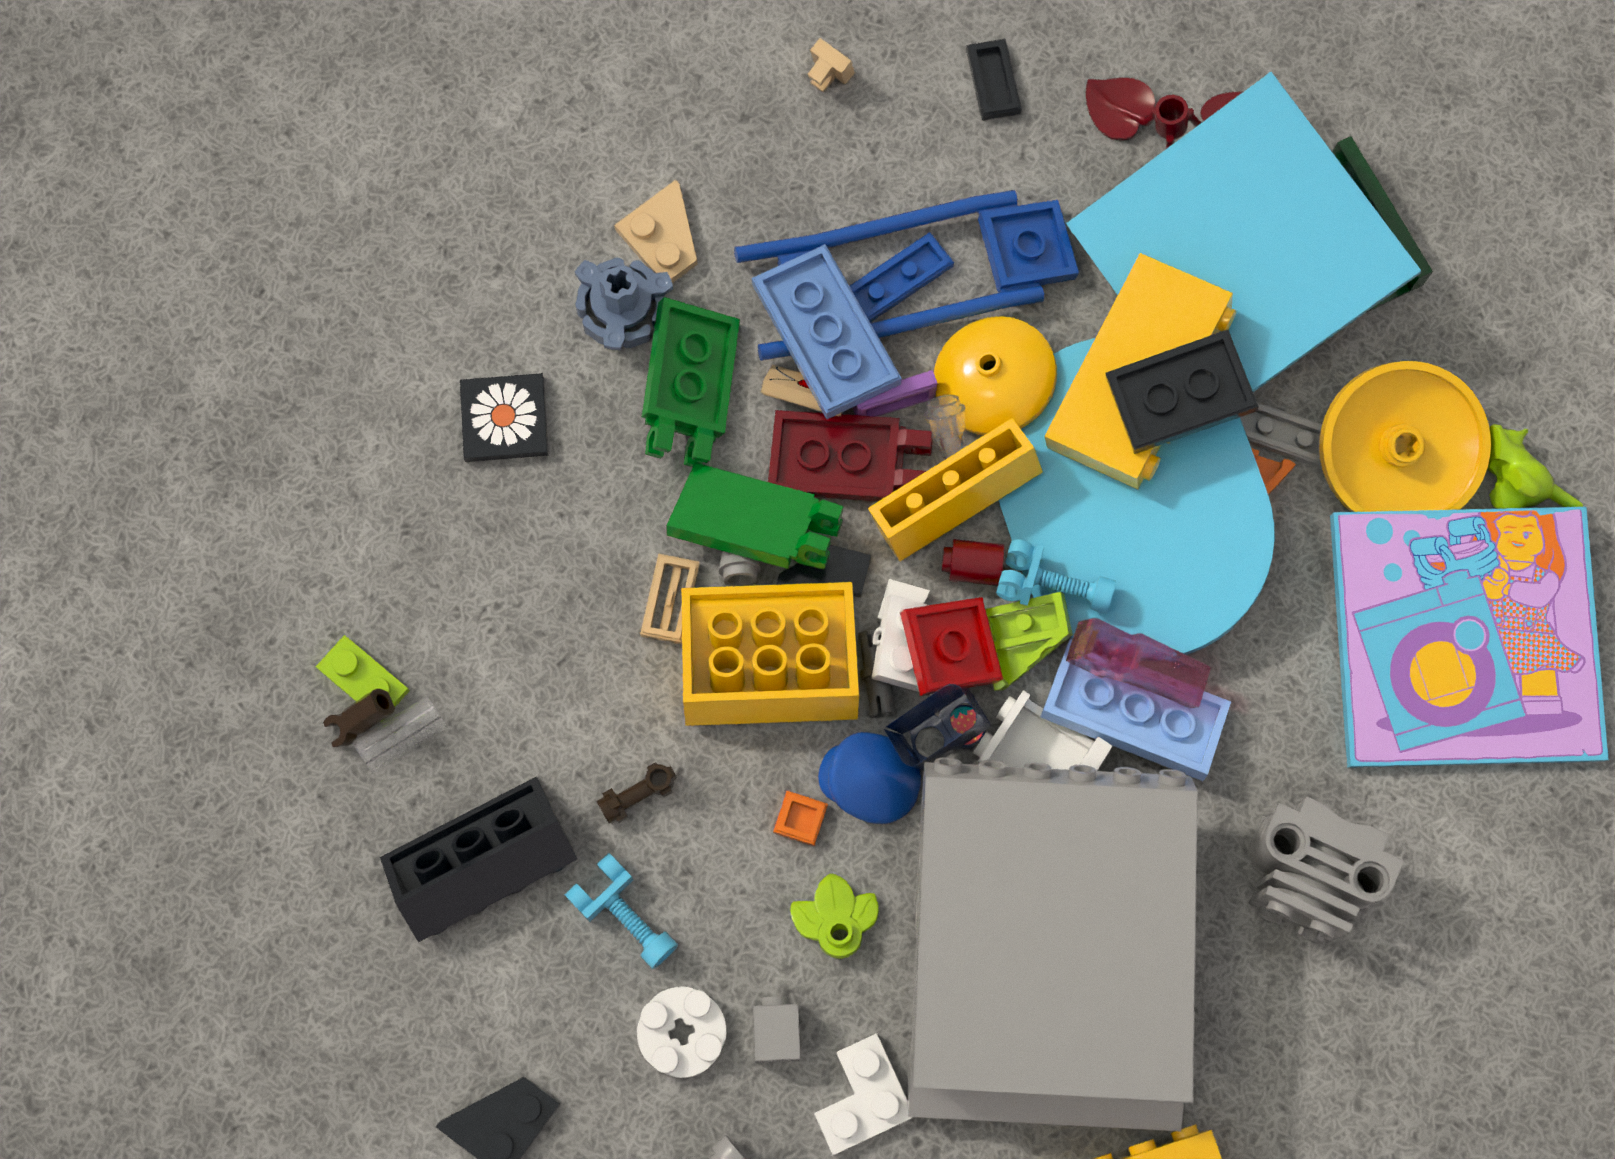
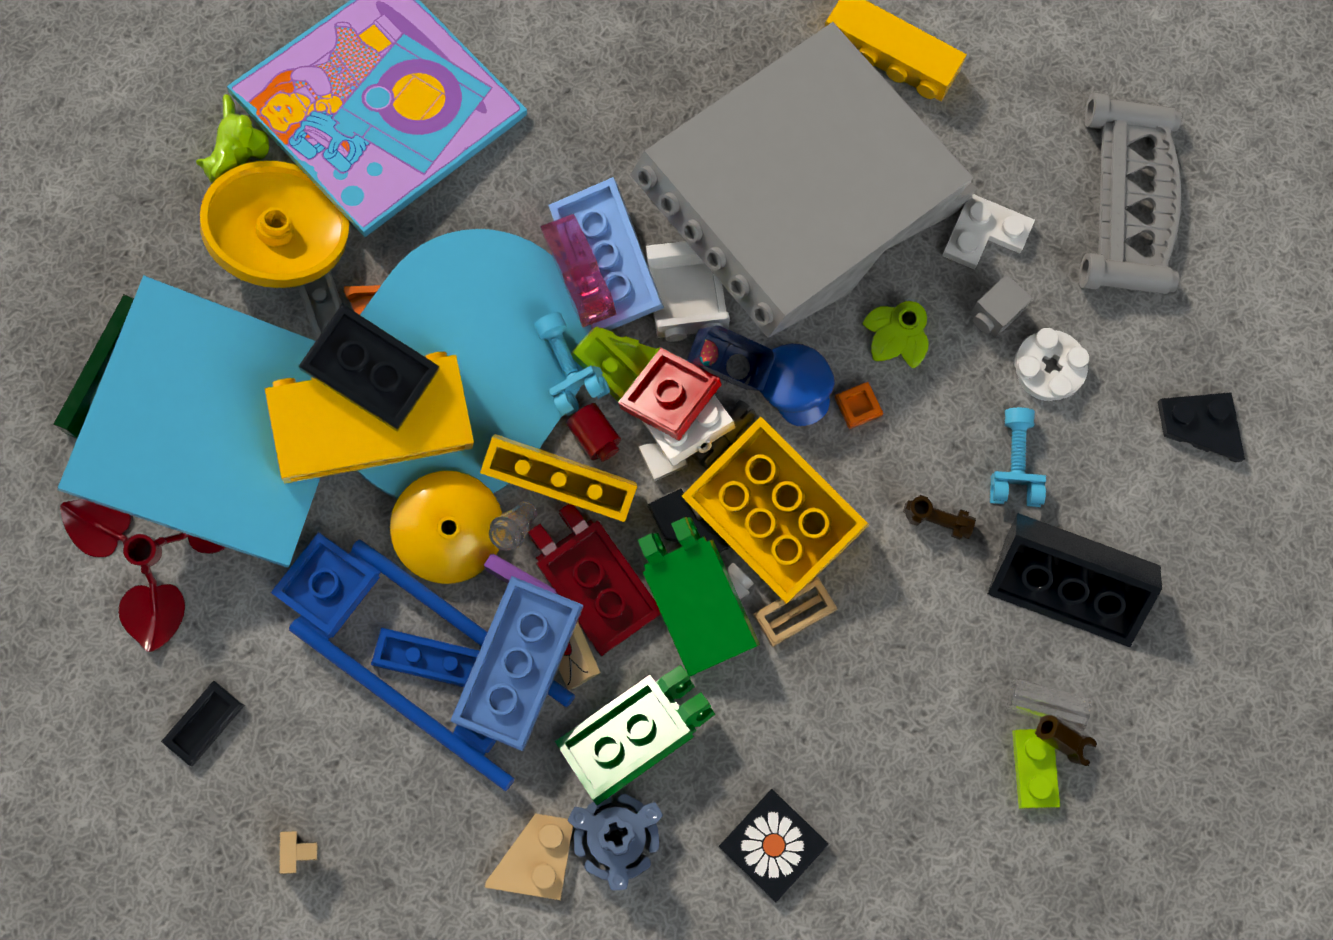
camera: 135 degrees left, 0 degrees up
(1319, 869) = (616, 72): light grey piece -> none

